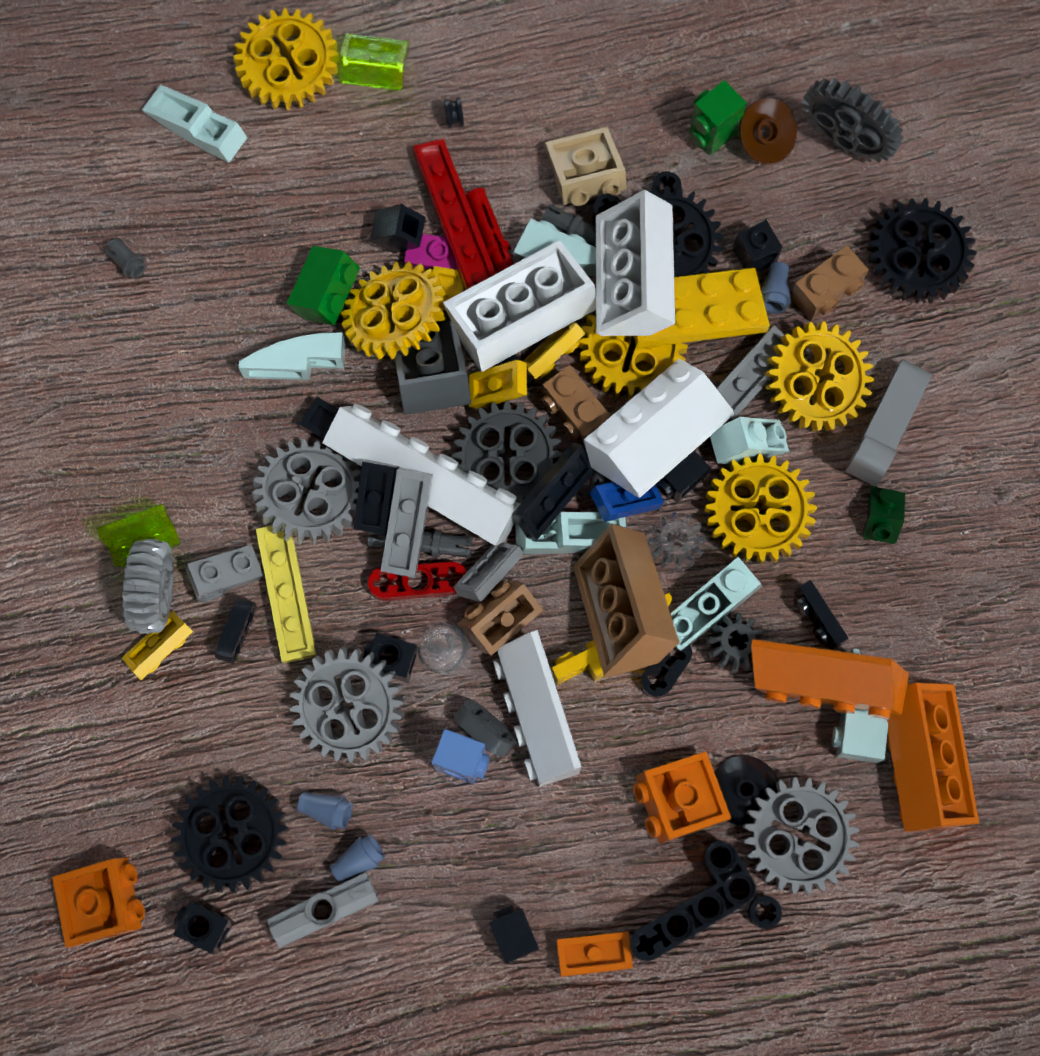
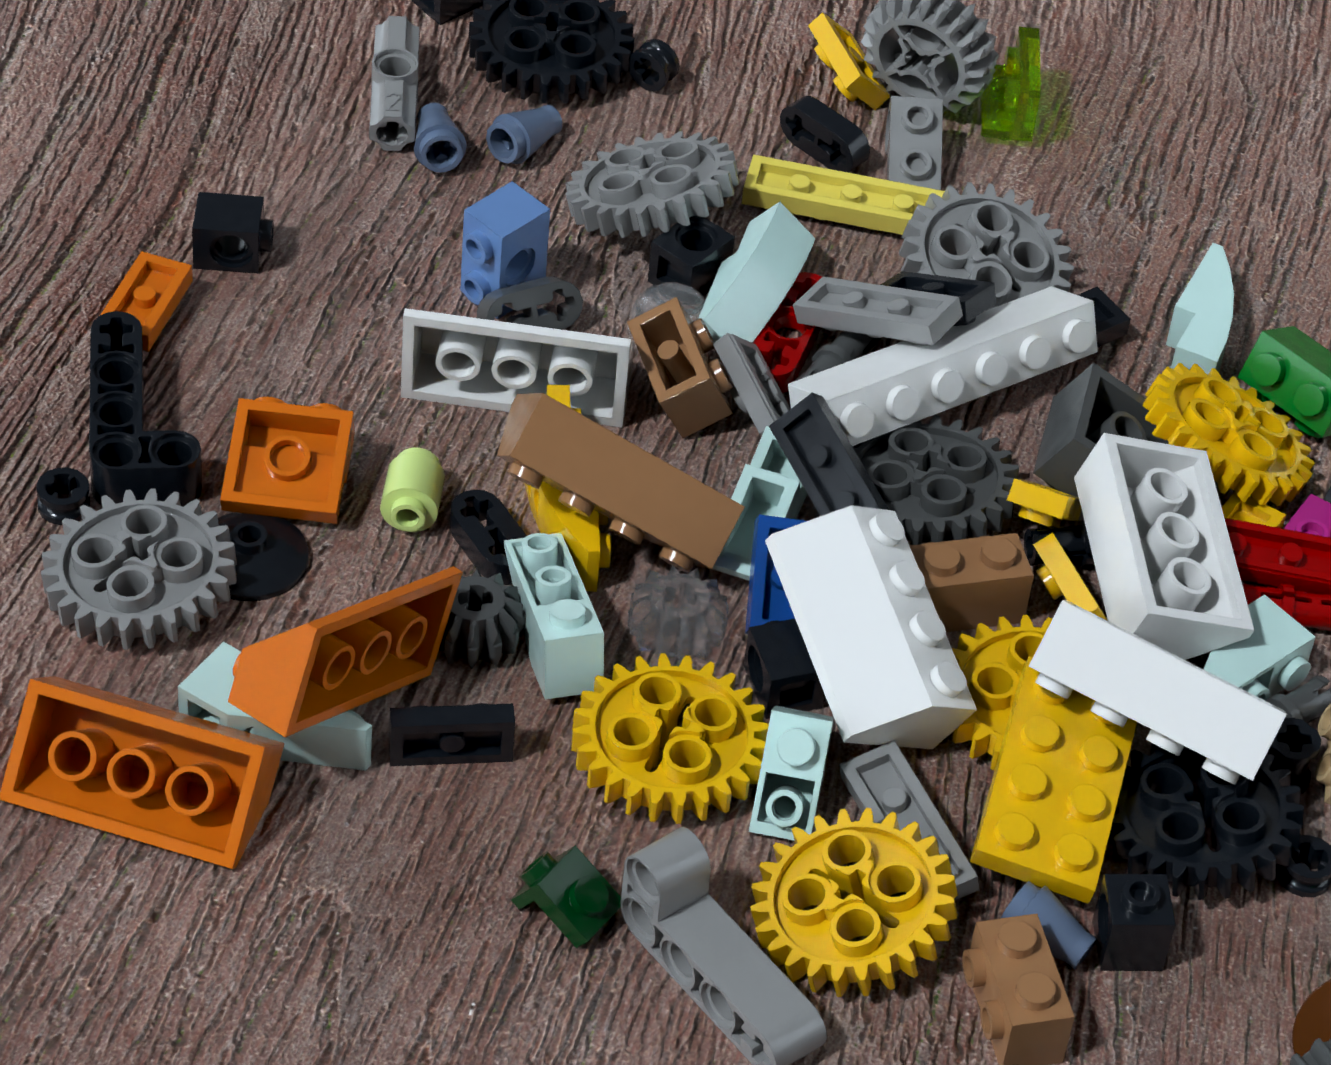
camera: 110 degrees right, 30 degrees down
(221, 760) = (653, 65): none -> black bush
(400, 609) = (758, 275): none -> light aqua slope
(661, 722) = (412, 490): none -> yellowish green brick

